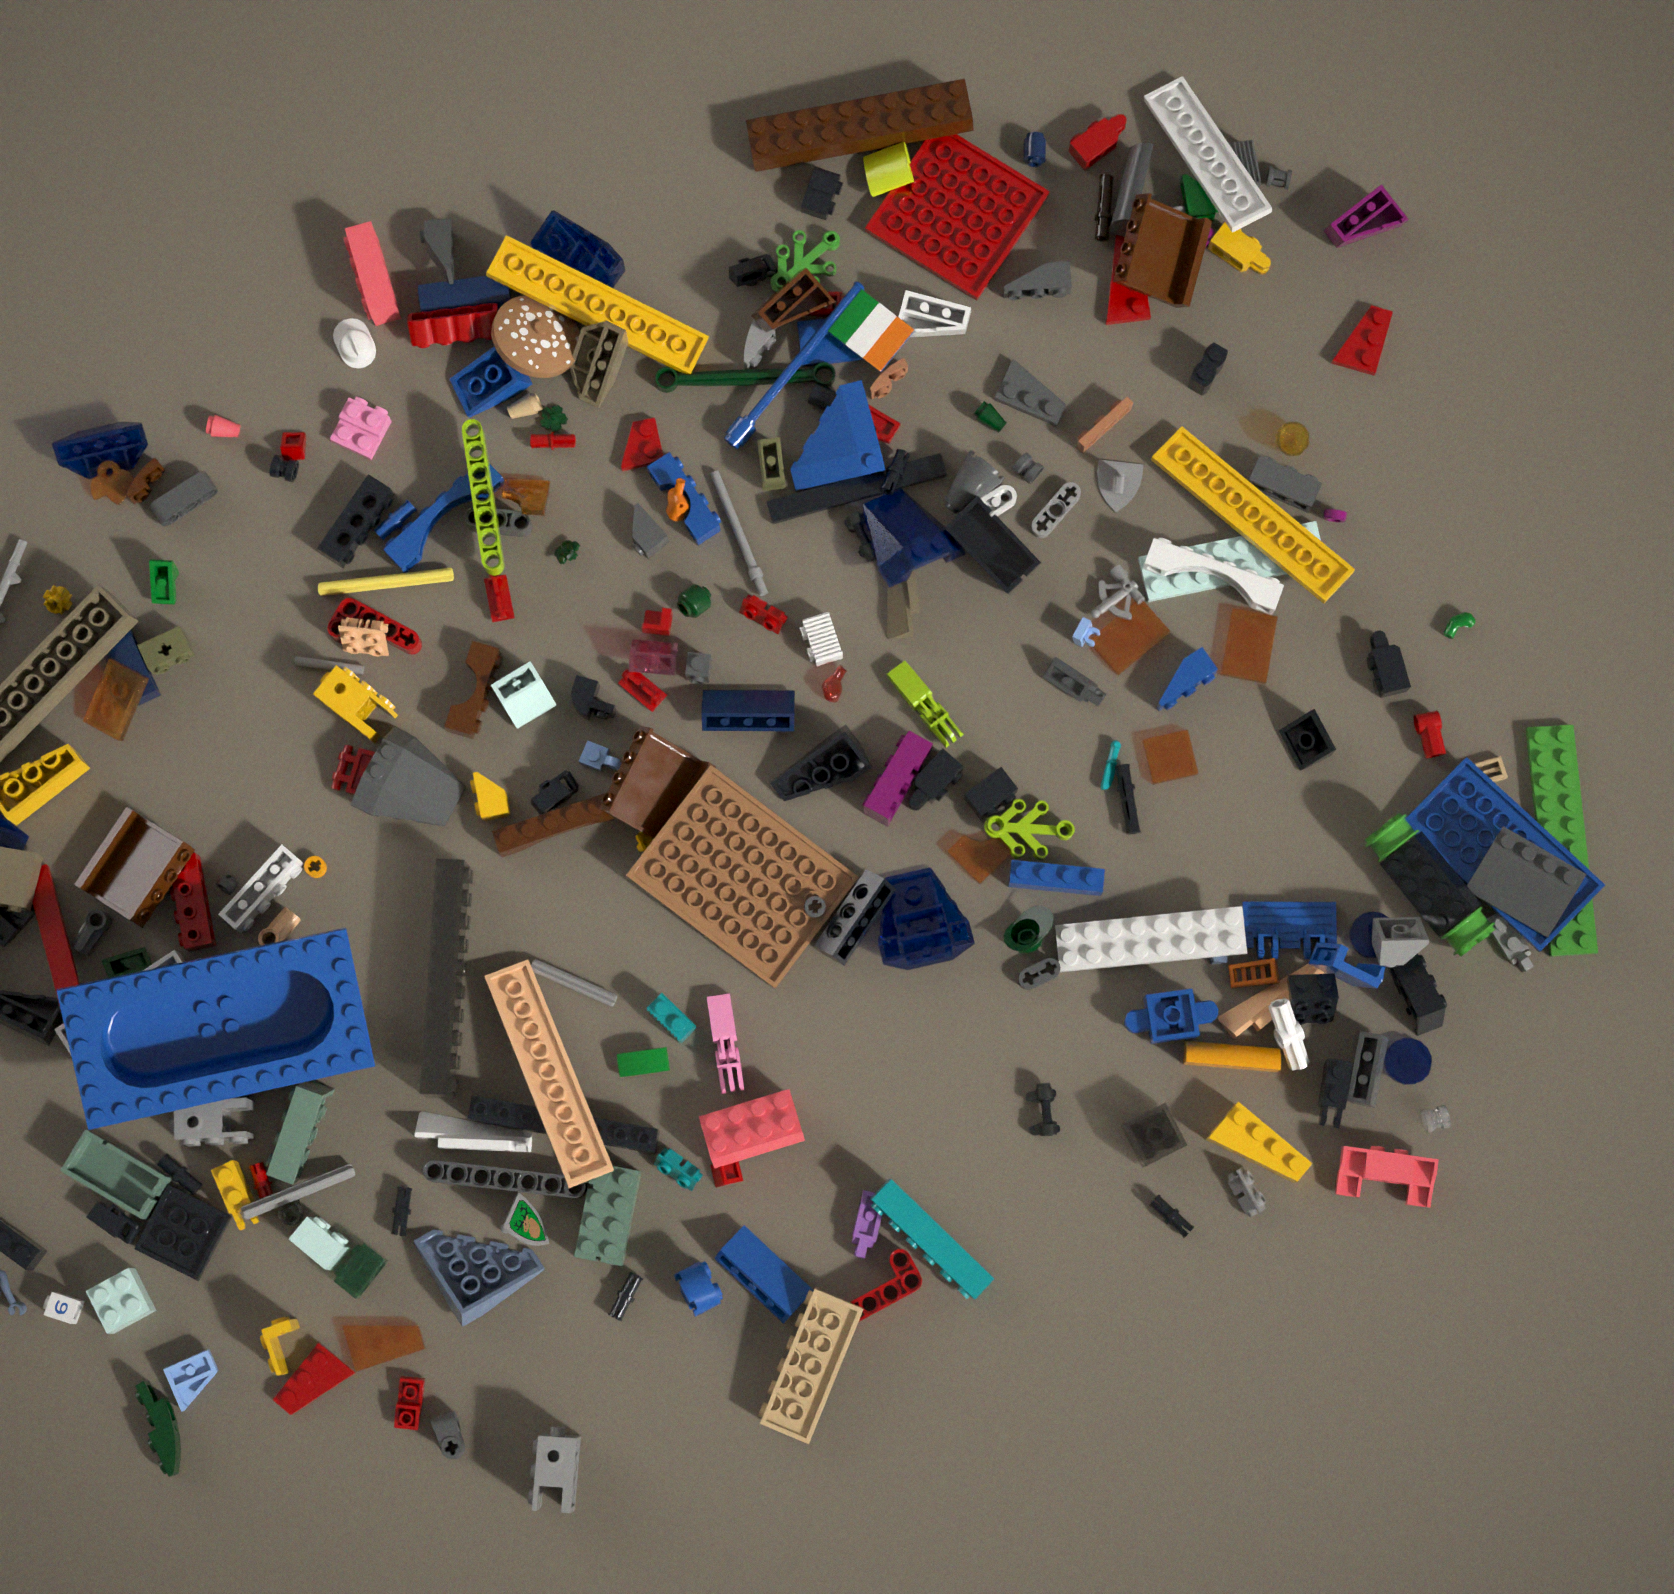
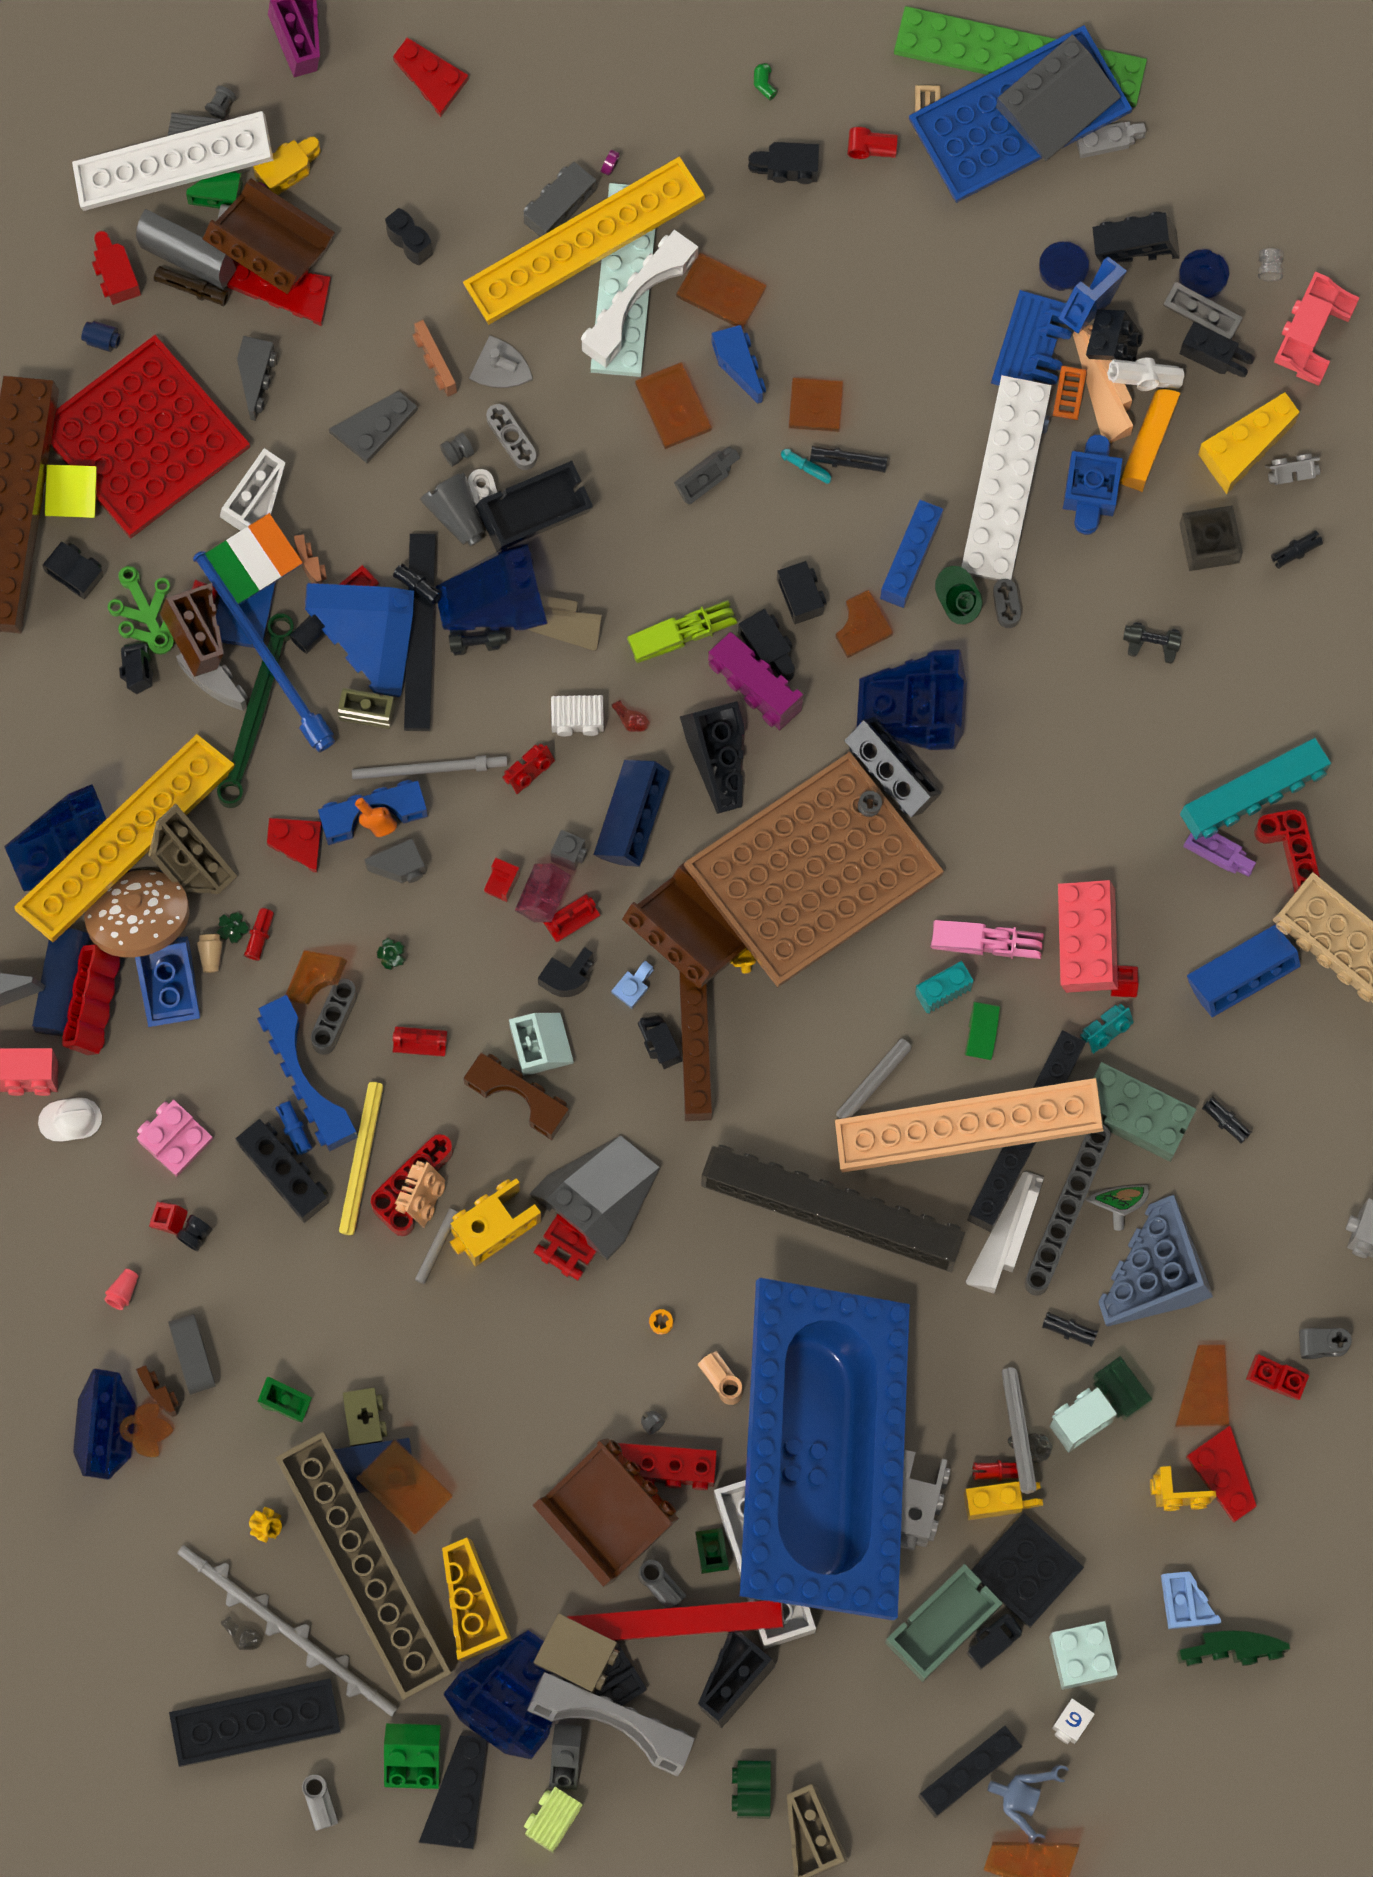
camera: 75 degrees left, 5 degrees down
(179, 1174) = (961, 1557): black pin -> none
(261, 889) = (671, 1382): white brick -> none
(298, 1131) = (954, 1413): sand green wedge -> none
(478, 487) = (297, 1009): lime beam -> none
(491, 798) = (645, 1110): yellow slope -> none
(694, 601) = (492, 834): dark green head -> none
(698, 1288) = (1241, 1038): blue brick -> none
(989, 416) = (385, 472): dark green cone -> none
(1025, 829) = (850, 569): lime plant -> none
(1083, 632) = (656, 448): light blue tile -> none
(1127, 589) = (623, 389): light grey piece -> none
(1292, 438) = (514, 177): clear yellow hair -> none
(1307, 740) = (841, 262): black slope -> none
(1398, 939) = (1081, 237): light grey slope -> none
(1430, 884) = (1031, 190): black brick -> none

